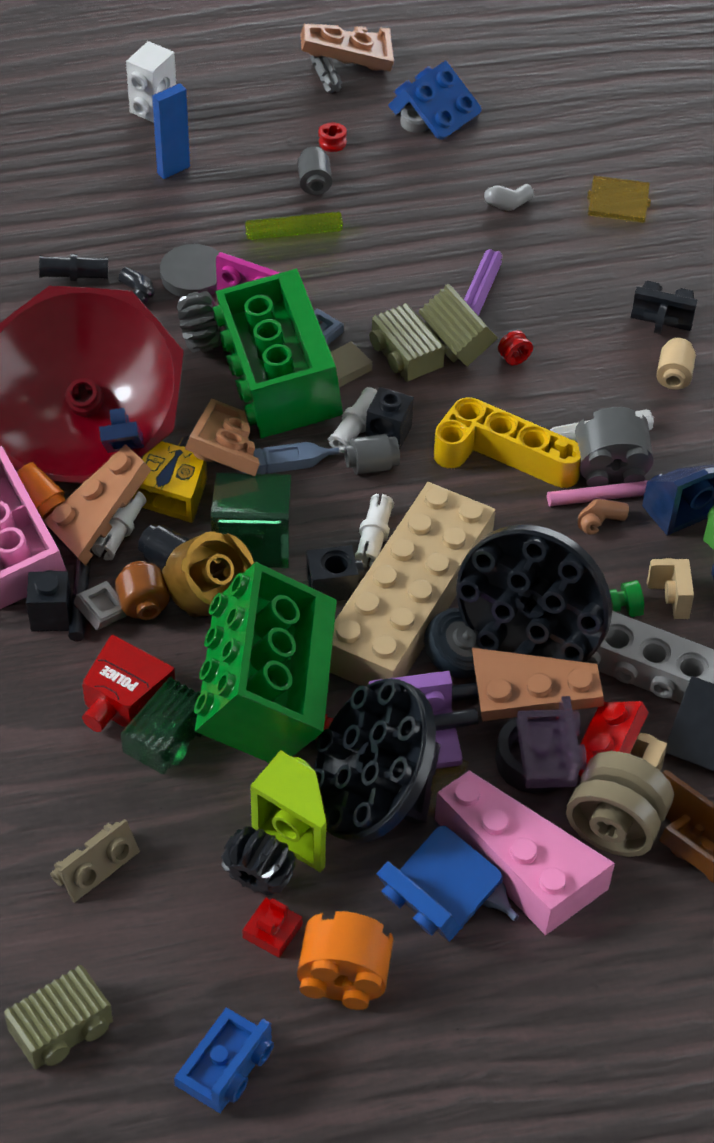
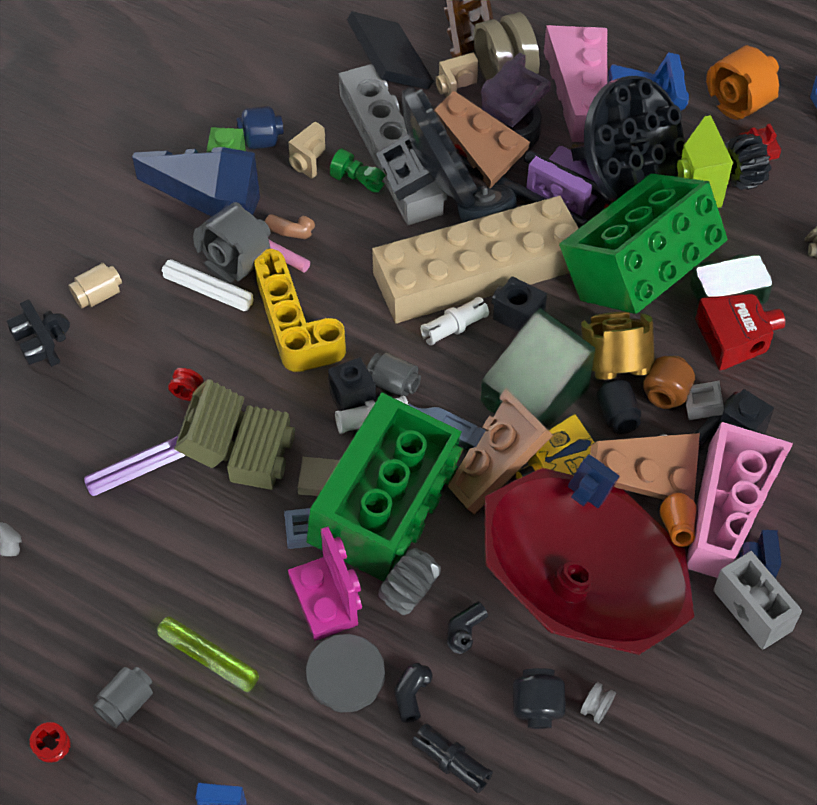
camera: 135 degrees left, 5 degrees up
(614, 728) = (465, 81): red bracket -> none

